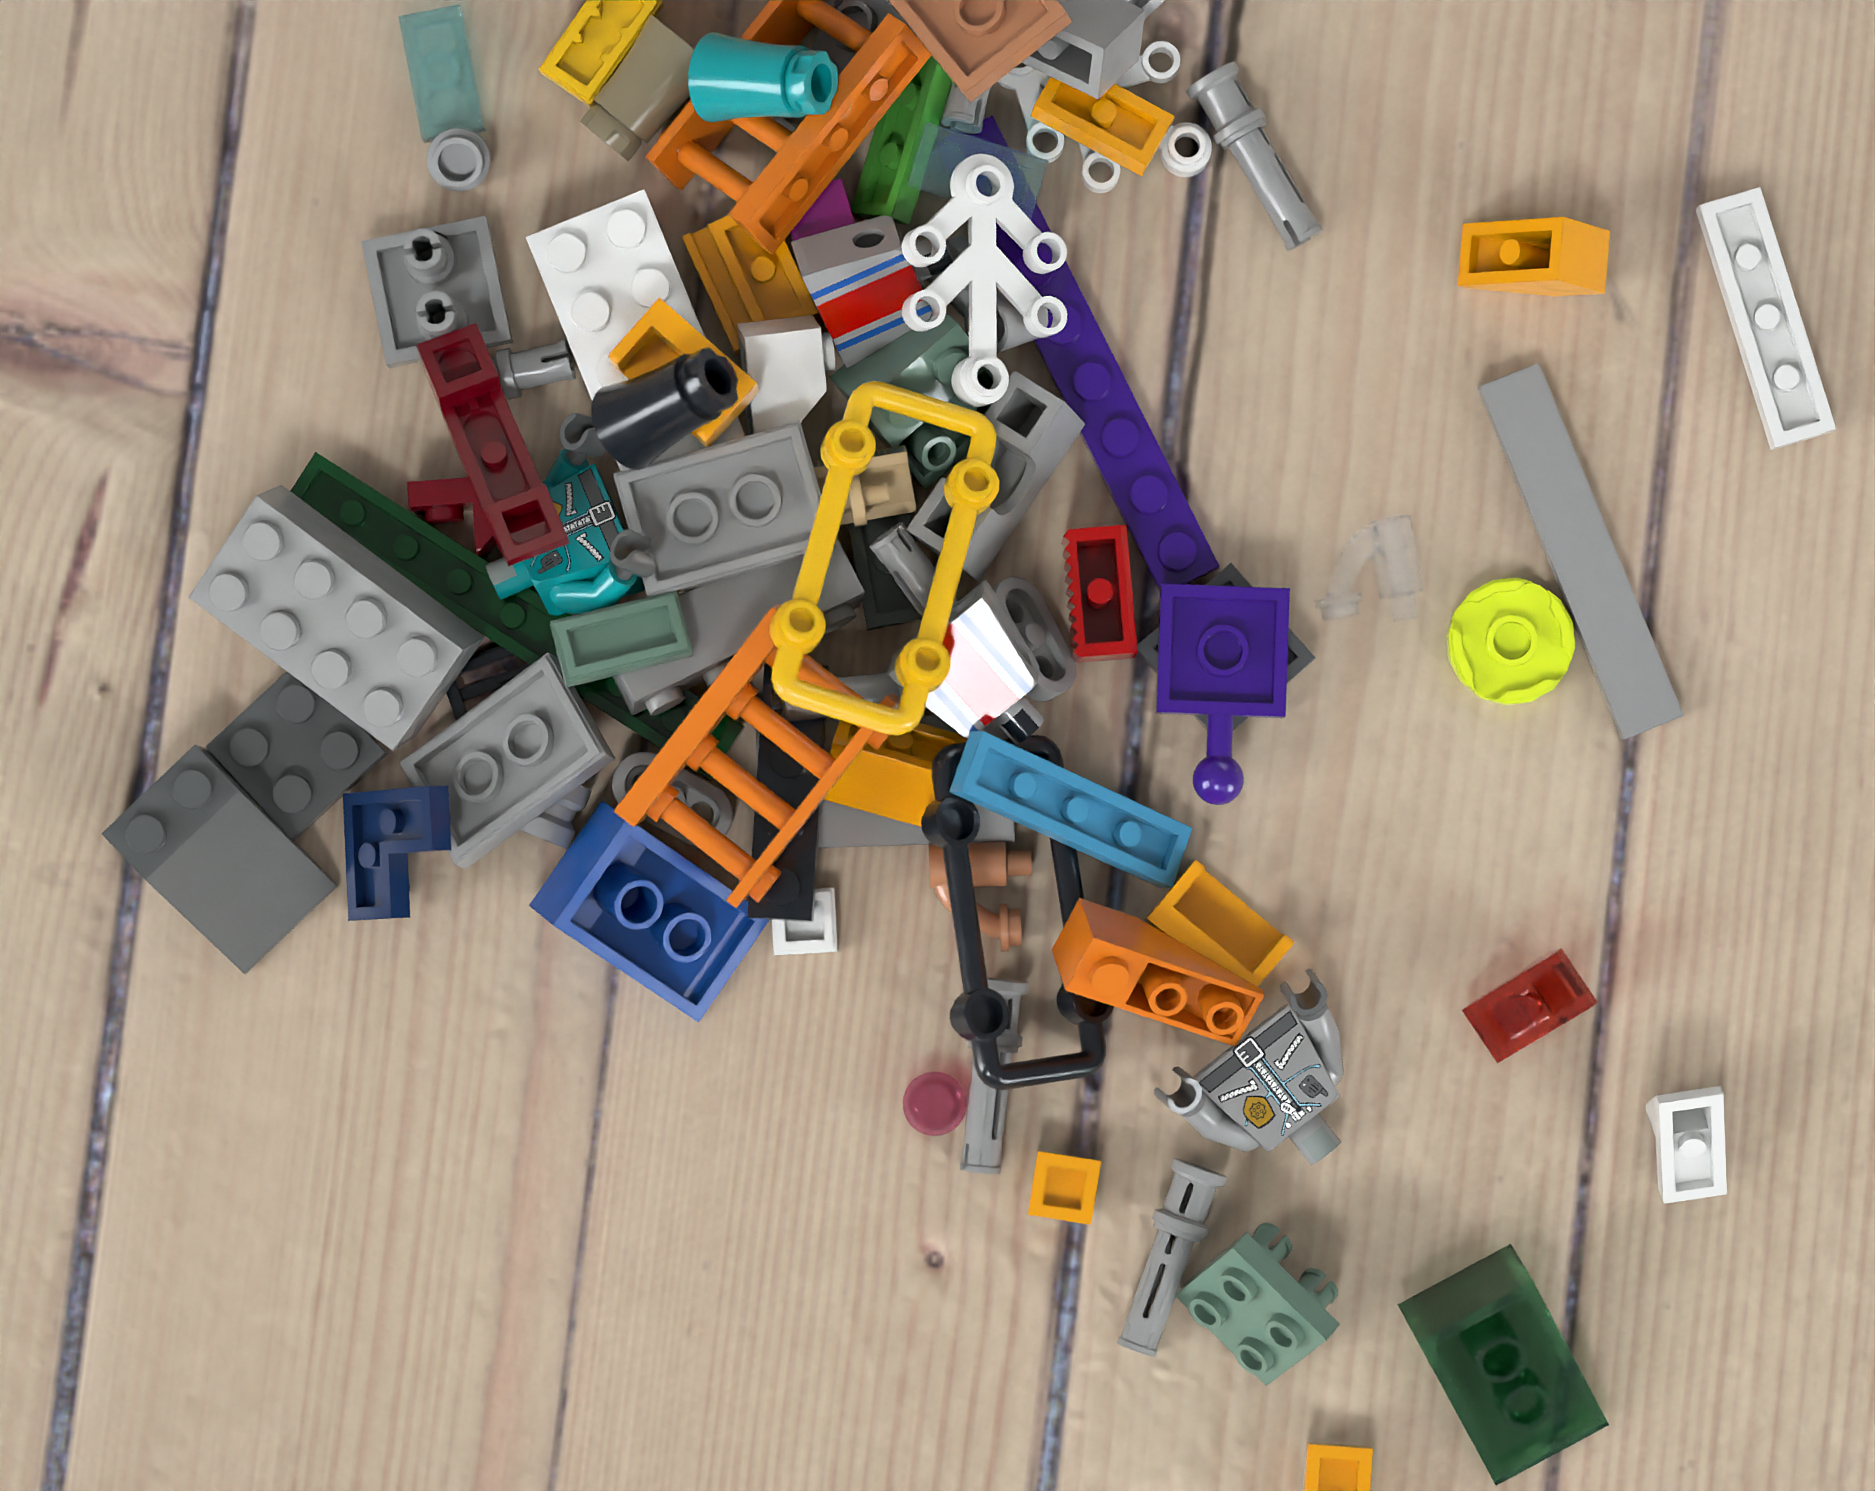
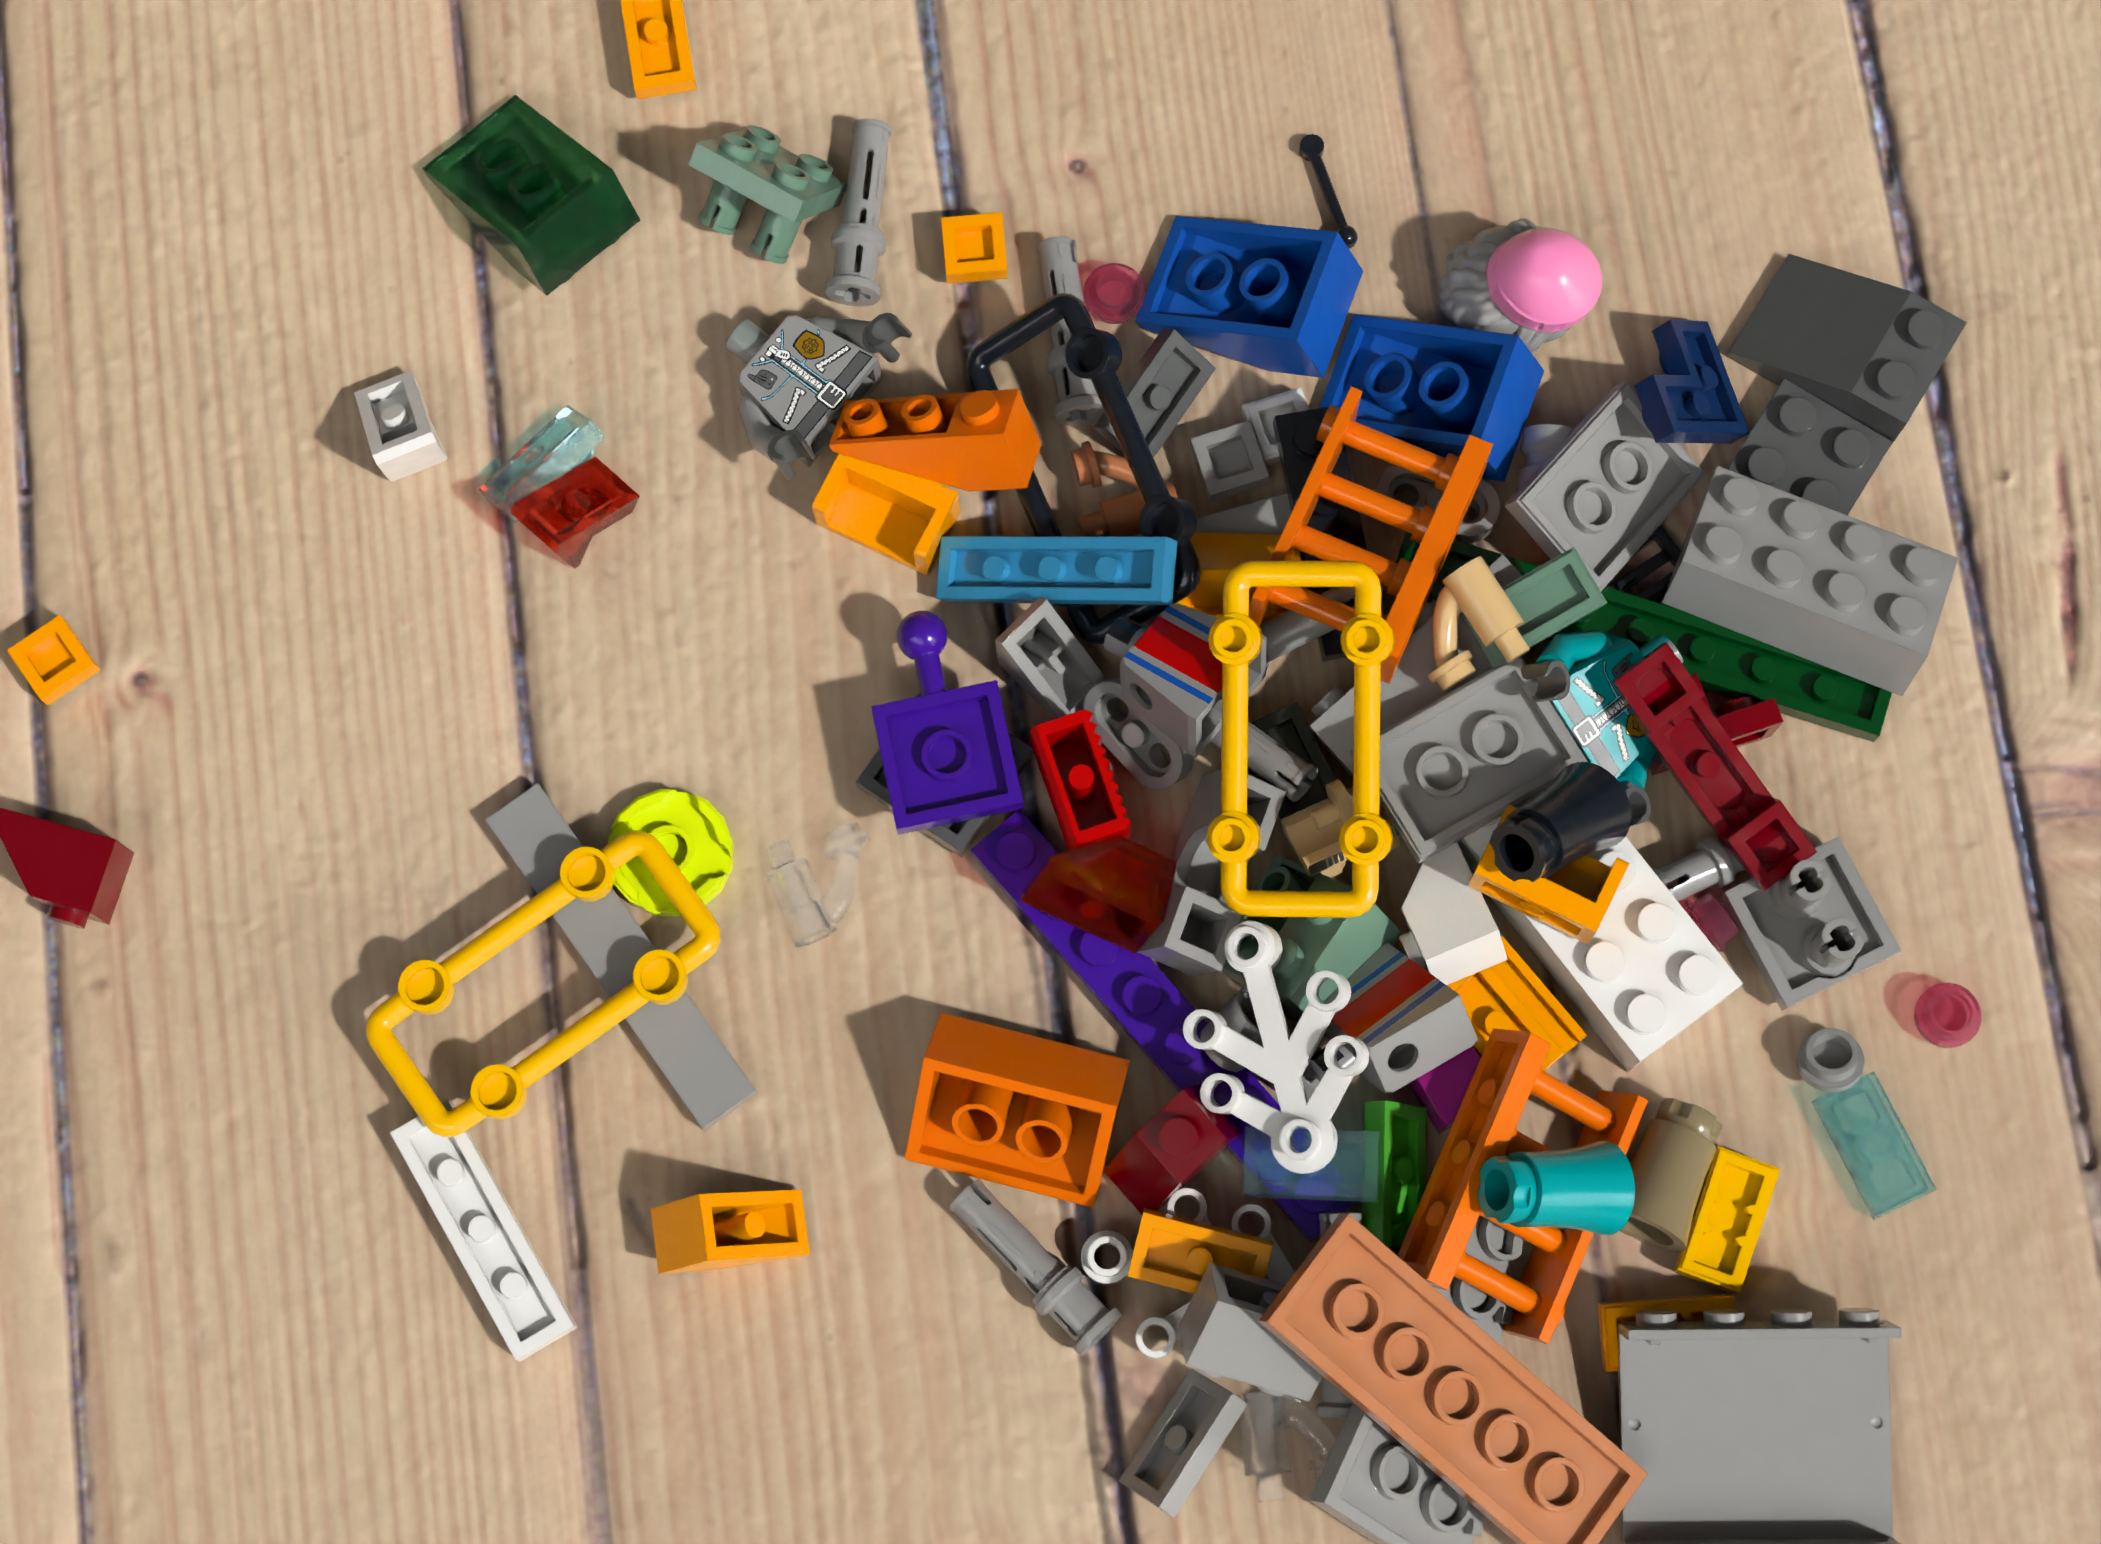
camera: 165 degrees right, 10 degrees down
(334, 175) = (1947, 1015): none -> clear pink plate
(531, 994) = (1520, 282): none -> bright pink hair
(534, 316) = (1712, 920): none -> clear pink plate
(669, 637) = (1488, 610): none -> tan plant
(691, 1213) = (1312, 150): none -> black hinge
(798, 1065) = (1253, 292): none -> blue slope
(866, 894) = (1229, 461): none -> light grey plate
(916, 982) = (1162, 388): none -> dark grey plate
(1095, 727) = (1047, 660): none -> light grey slope
(1098, 480) = (1106, 890): none -> clear red slope
(1101, 223) = (1170, 1150): none -> dark red slope
(1235, 304) = (1016, 1109): none -> orange slope
(1553, 1066) = (548, 455): none -> clear light blue plate
(1720, 439) = (430, 985): none -> yellow bar

